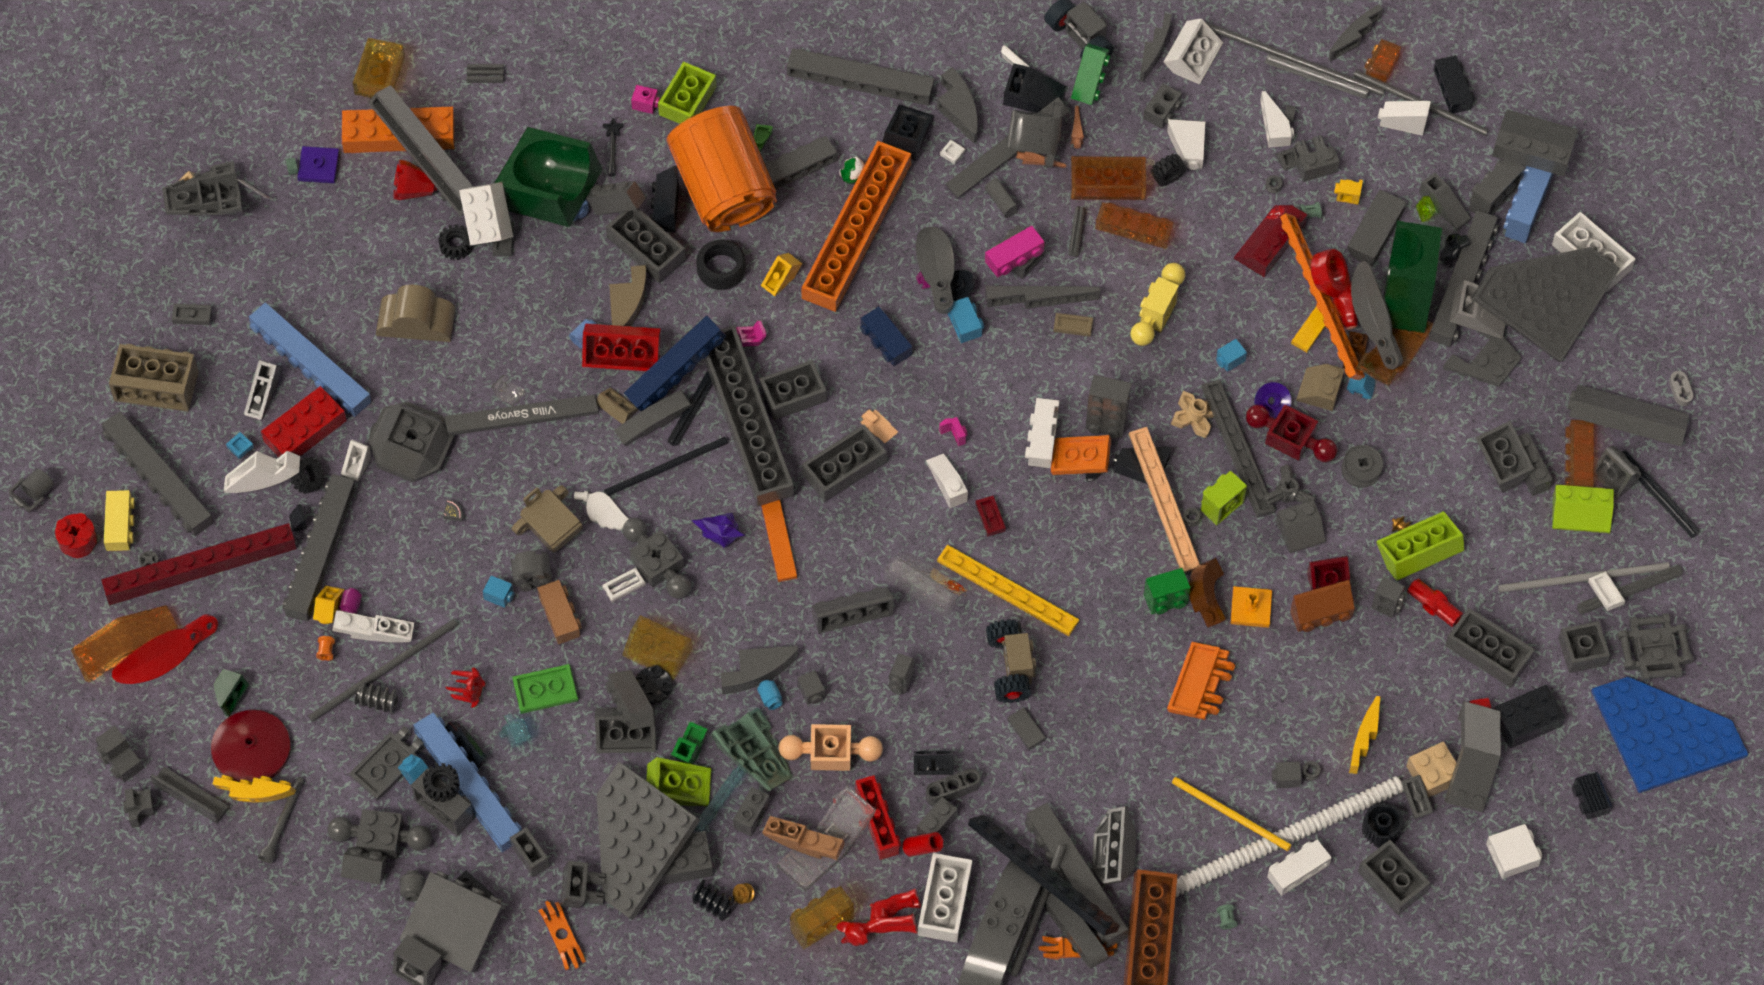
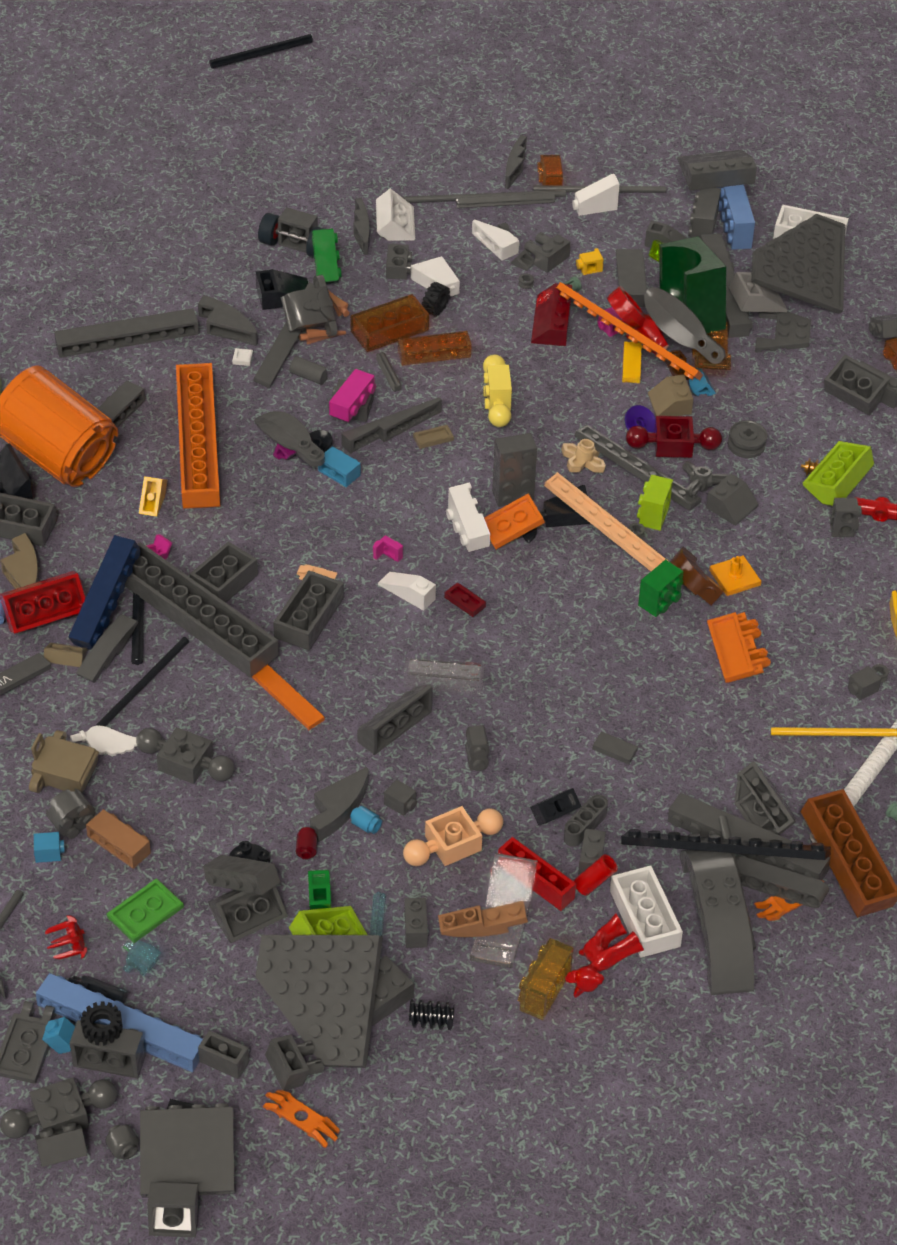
camera: 30 degrees left, 15 degrees down
(626, 591) = (162, 805): white tile -> none
(657, 645) = (231, 823): clear yellow slope -> none
(708, 692) = (306, 843): none -> dark red brick
(720, 529) = (229, 707): dark purple hair -> none
(724, 280) = (95, 521): black tyre -> none
(743, 893) = (455, 995): pearl gold wheel -> none
(753, 749) = (381, 872): sand green wedge -> none
(851, 170) = (165, 398): hair -> none
(885, 336) = (278, 504): dark blue brick -> none
(908, 130) = (194, 352): black slope -> none
(1008, 590) = (520, 649): yellow tile -> none
(1010, 57) = (246, 274): white tile -> none
(1018, 660) = (570, 692): brick -> none
(1231, 355) = (582, 405): dark azure brick -> none
(1322, 606) = (796, 546): dark orange slope -> none
(1328, 572) = (783, 525): dark red slope -> none
(1453, 84) = (611, 162): black brick -> none

